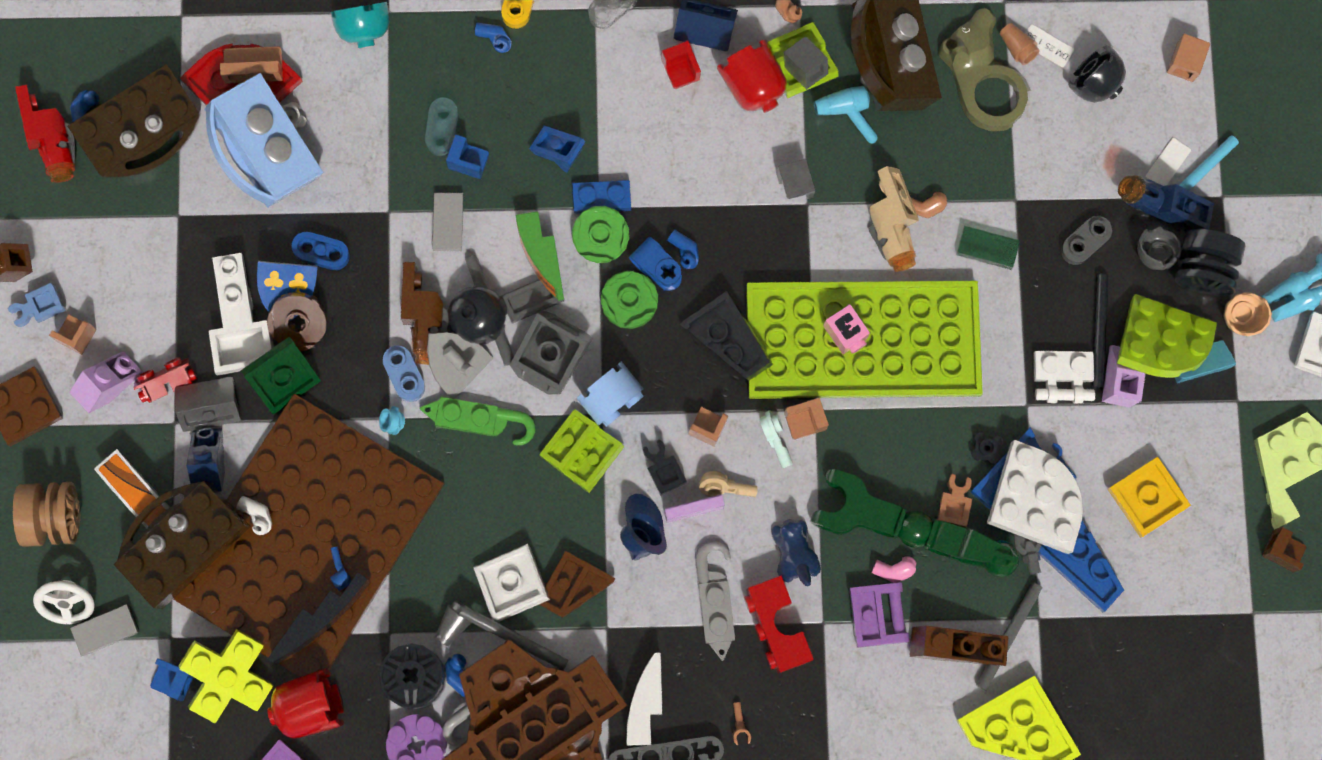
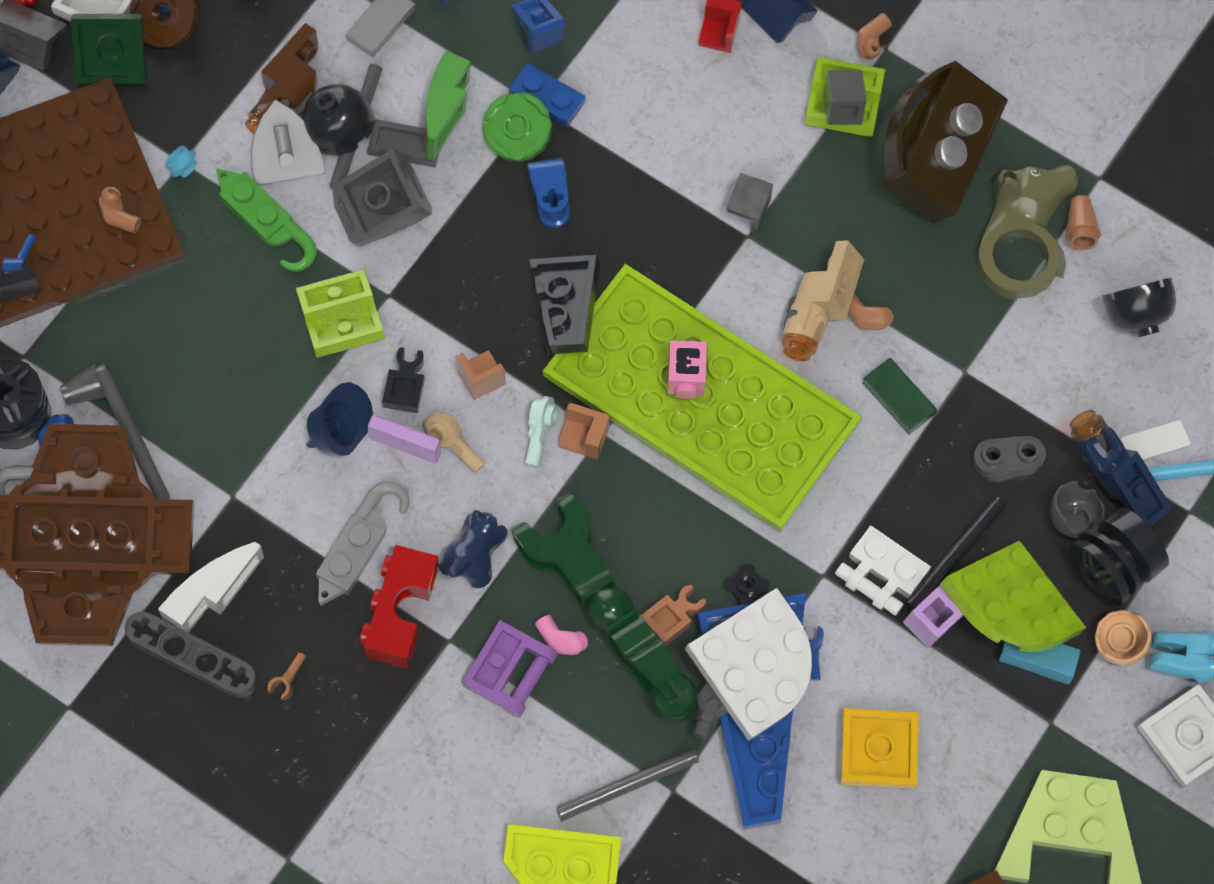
camera: 40 degrees right, 10 degrees down
(378, 491) = (113, 211): none -> nougat arm
(404, 372) = (227, 127): medium blue plate -> none
(511, 583) = (172, 386): white tile -> none
(574, 584) = (229, 430): reddish brown wing -> none
(610, 394) = (406, 275): light blue brick -> none
(629, 299) = (498, 206): bright green tile -> none
(688, 249) = (593, 197): blue arm -> none
(754, 78) = (781, 76): red cylinder -> none
(849, 102) = (862, 165): medium azure piece -> none
(958, 646) = (566, 753): reddish brown slope -> none
(1050, 47) = (1115, 249): white sticker -> none

